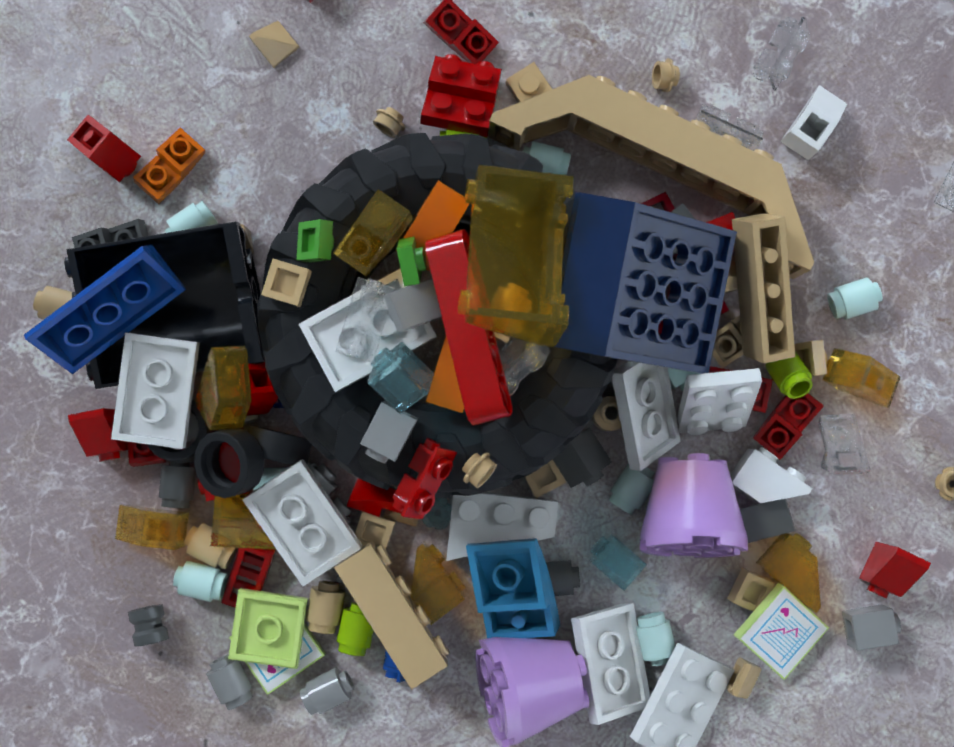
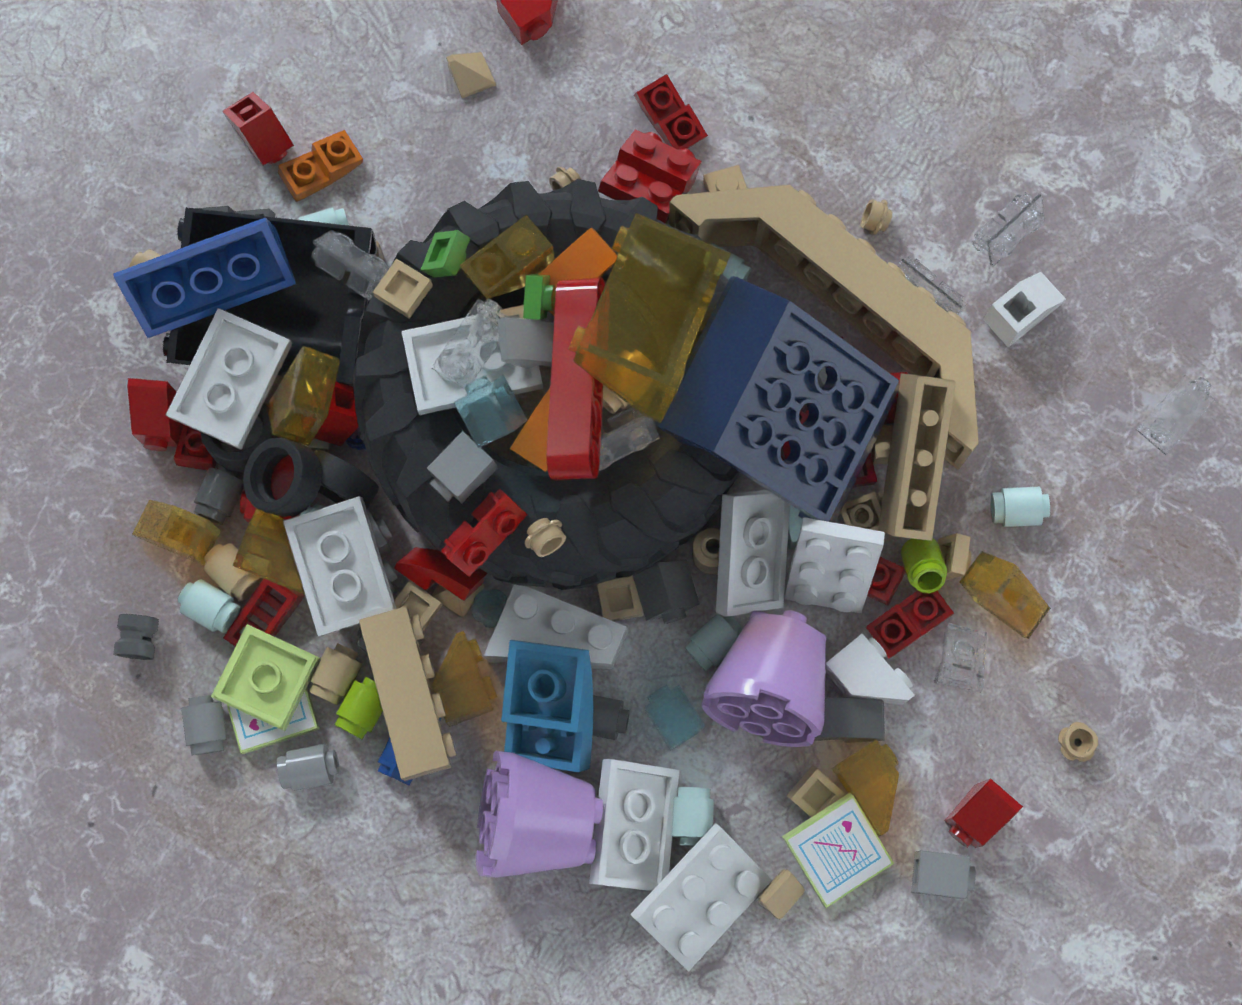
camera: 15 degrees right, 10 degrees down
(215, 254) = (338, 253): none -> clear hinge

